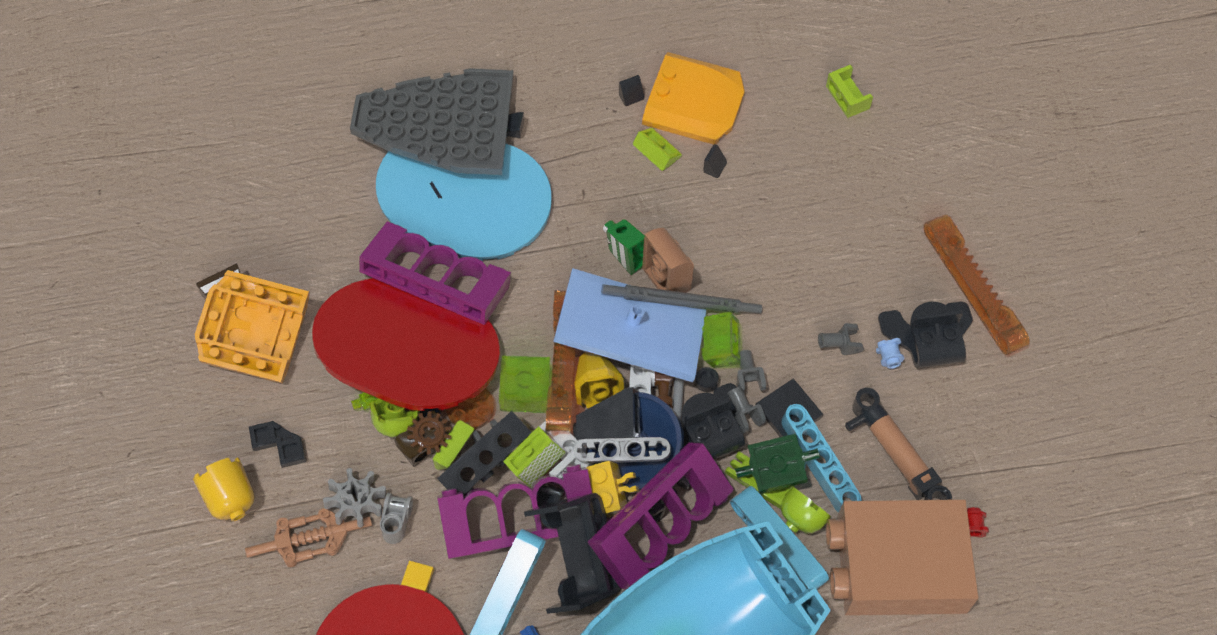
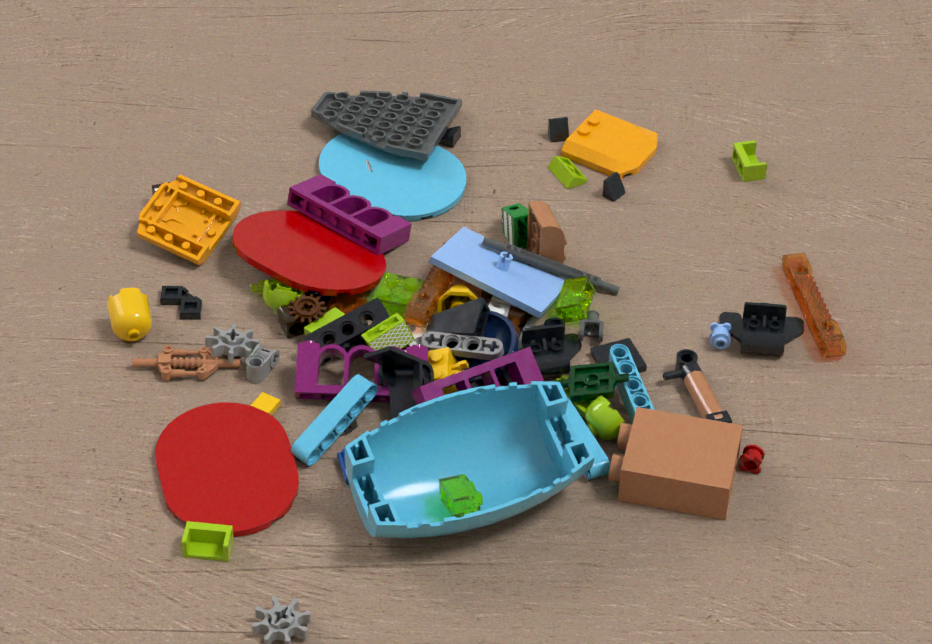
camera: 15 degrees right, 20 degrees down
(744, 408) = (579, 348): dark grey piece -> none
(841, 340) = (682, 320): dark grey piece -> none

